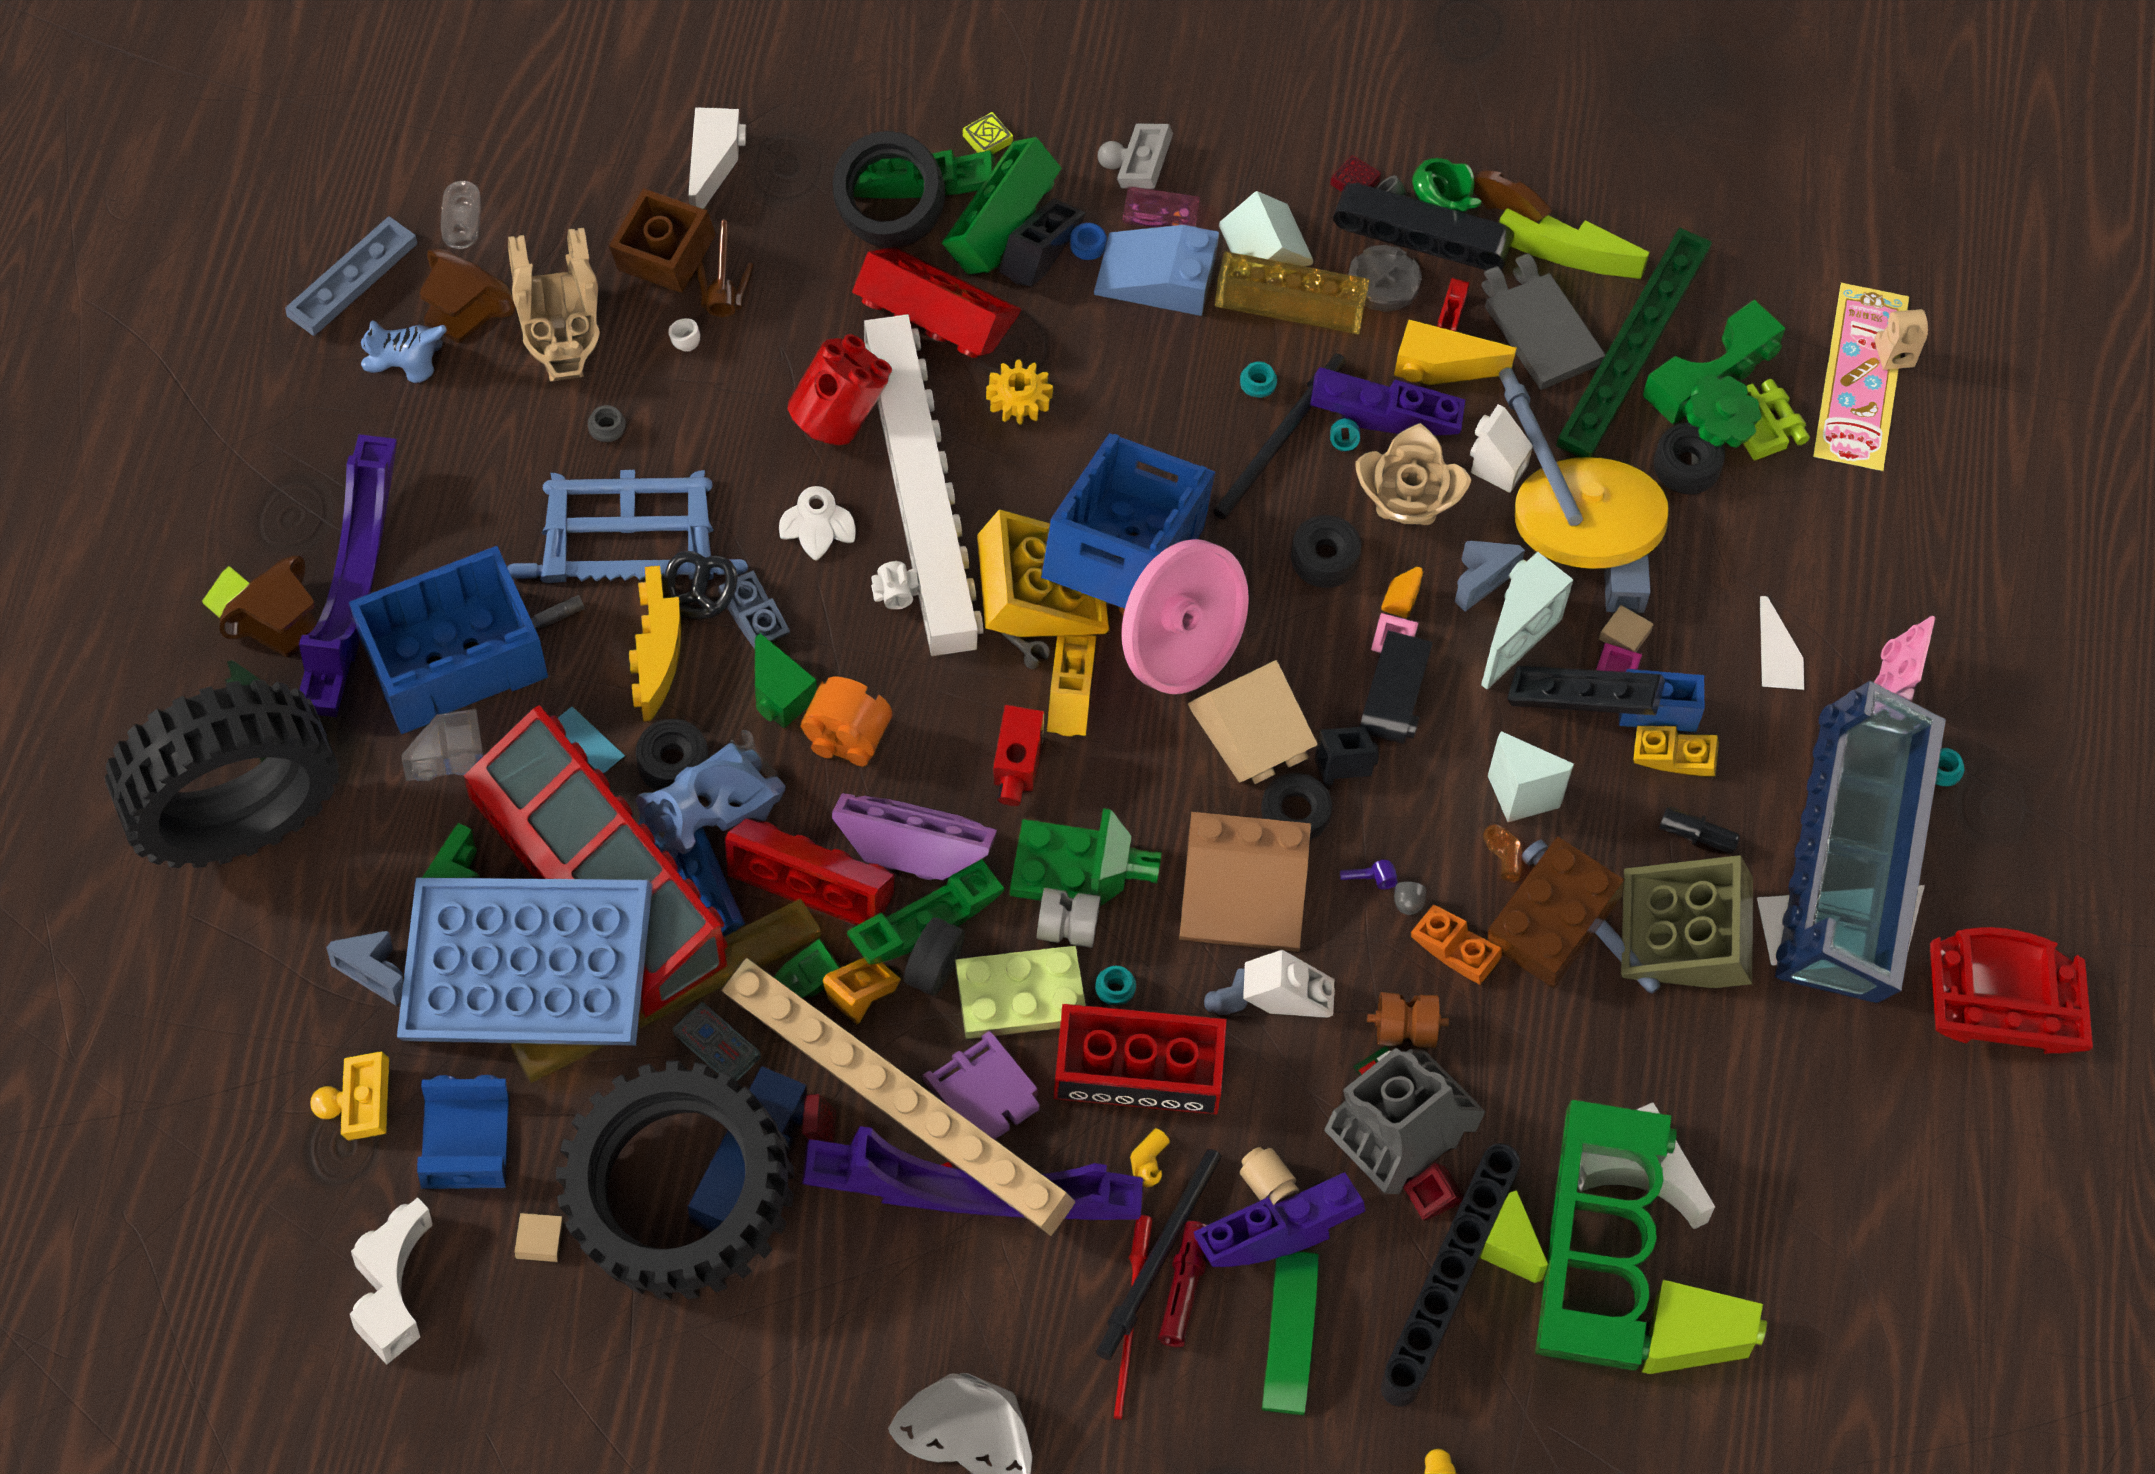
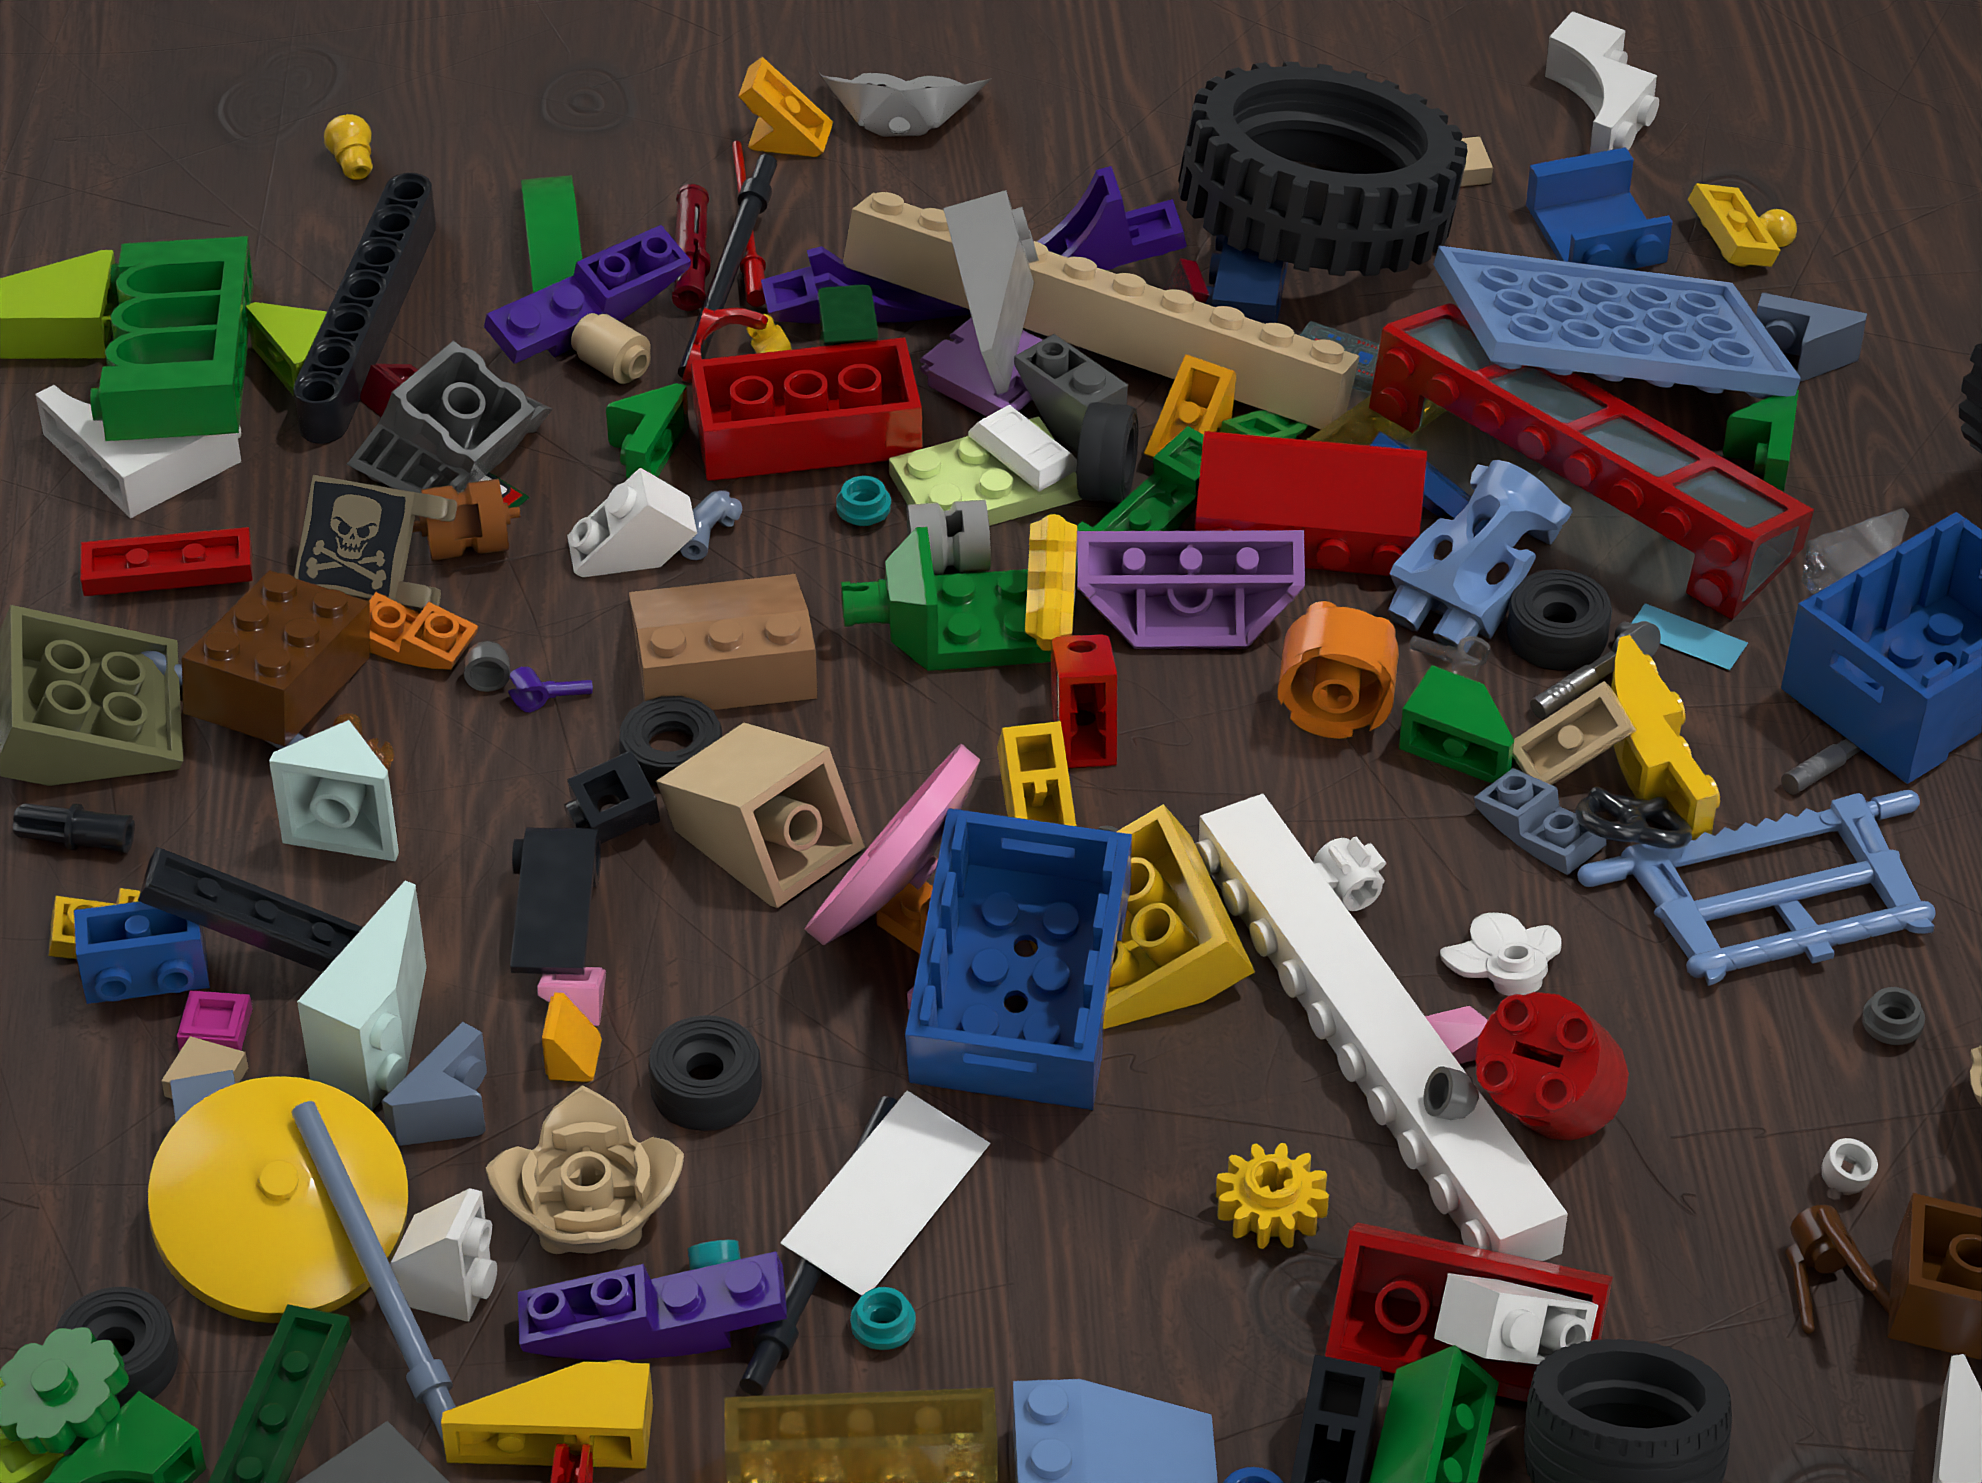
camera: 170 degrees right, 15 degrees down
(626, 731) = (1644, 634): none -> flat silver piece
(711, 649) = (1573, 735): none -> tan slope
(870, 478) = (1459, 1031): none -> bright pink slope
(904, 389) = (1450, 1094): none -> dark grey hinge
(928, 250) = (1510, 1319): none -> white slope
(937, 1027) = (1065, 384): none -> dark grey slope
(984, 1069) = (993, 261): none -> light grey slope
(991, 984) = (1024, 448): none -> white tile
(1014, 835) = (1051, 580): none -> yellow rock
(1075, 1415) = (787, 117): none -> light orange slope
(1092, 1118) = (847, 315): none -> dark green slope
(1196, 1156) = (714, 320): none -> red cap
(1246, 446) = (885, 1194): none -> white sticker
(1255, 1085) = (648, 427): none -> green slope
(1476, 1002) = (361, 539): none -> flag
(1624, 1046) = (166, 561): none -> red plate

